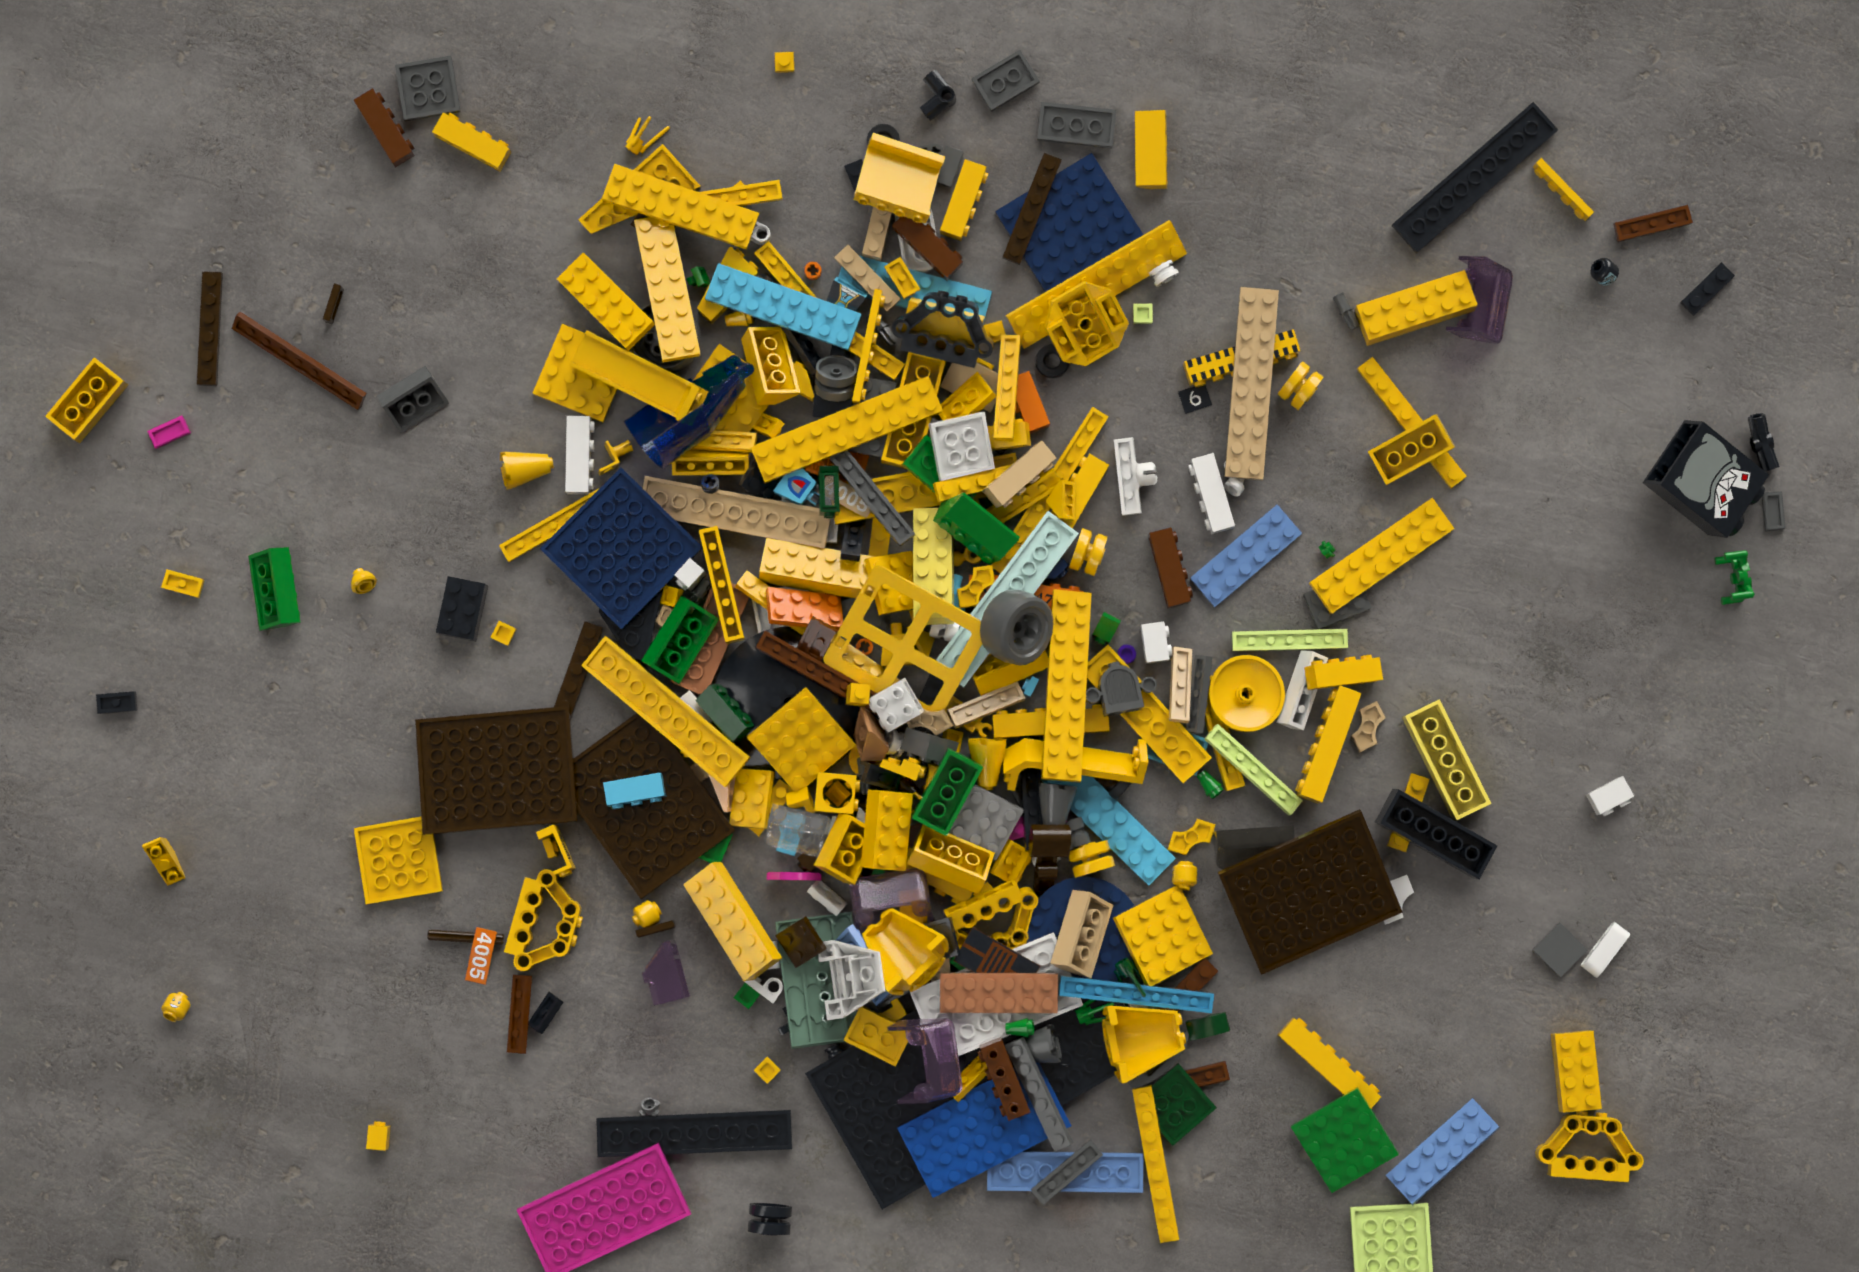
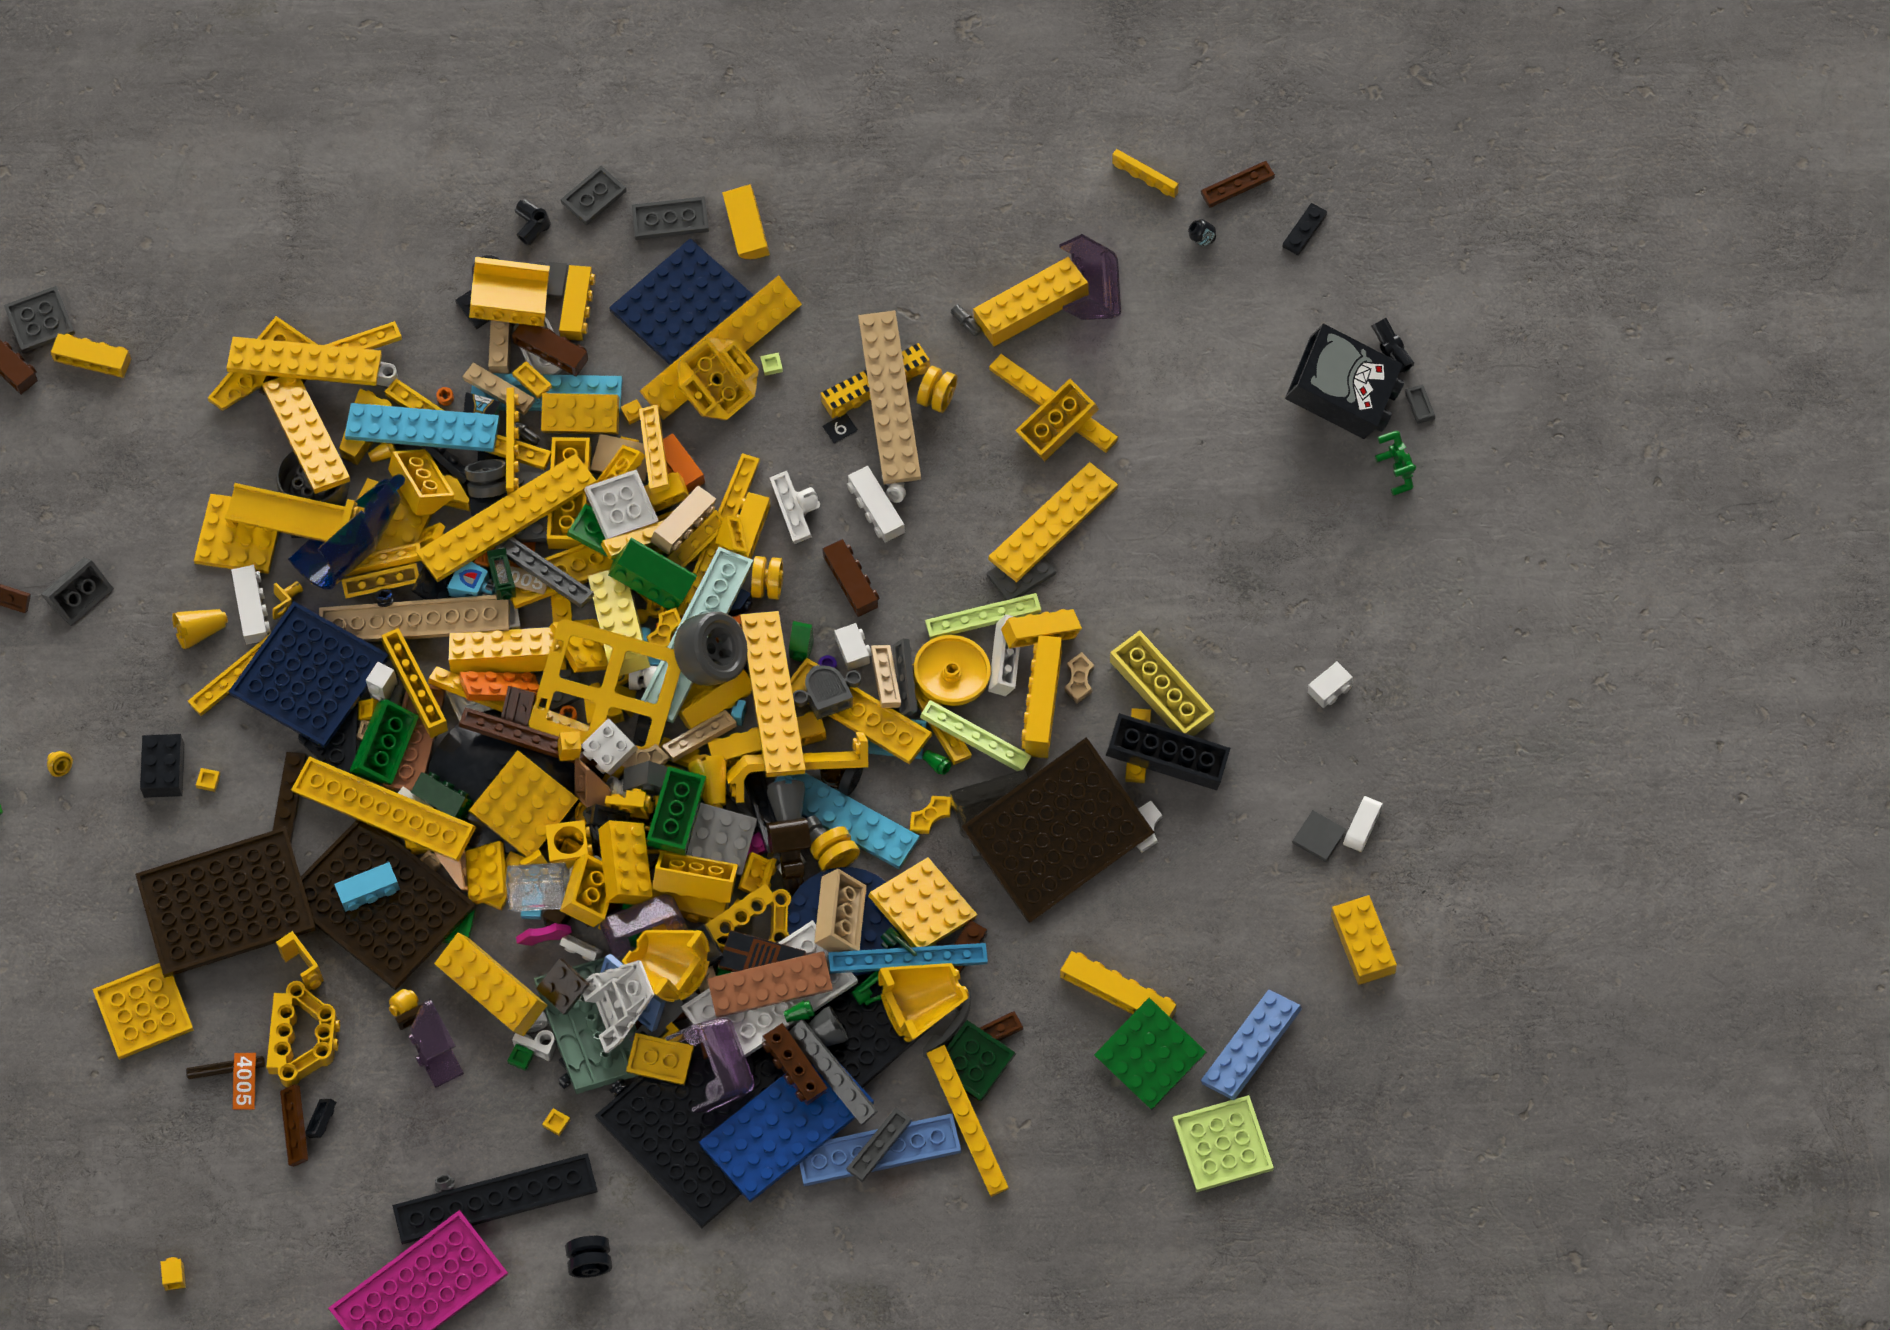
camera: 10 degrees left, 20 degrees down
(551, 848) = (294, 963): yellow plate -> none
(605, 301) = (249, 459): yellow plate -> none
(634, 142) = (249, 324): yellow plant -> none
(699, 277) = (335, 425): green tile -> none
(784, 62) = (378, 225): yellow plate -> none
(853, 540) = (535, 616): black plate -> none
(930, 349) = (555, 396): black brick -> none
(971, 1077) = (761, 1077): yellow plate -> none
(1032, 208) = (643, 295): dark brown plate -> none
(1043, 368) = (689, 434): black tyre -> none
(1163, 273) = (783, 323): white wheel -> none
(1184, 875) = (932, 847): yellow head -> none
(1207, 1026) = (988, 981): dark green slope -> none
(1245, 556) = (922, 553): medium blue plate -> none
(1327, 549) = (999, 528): green plate -> none
(1474, 177) = (1059, 182): black plate -> none
(1563, 1134) = (1391, 1033): yellow brick -> none

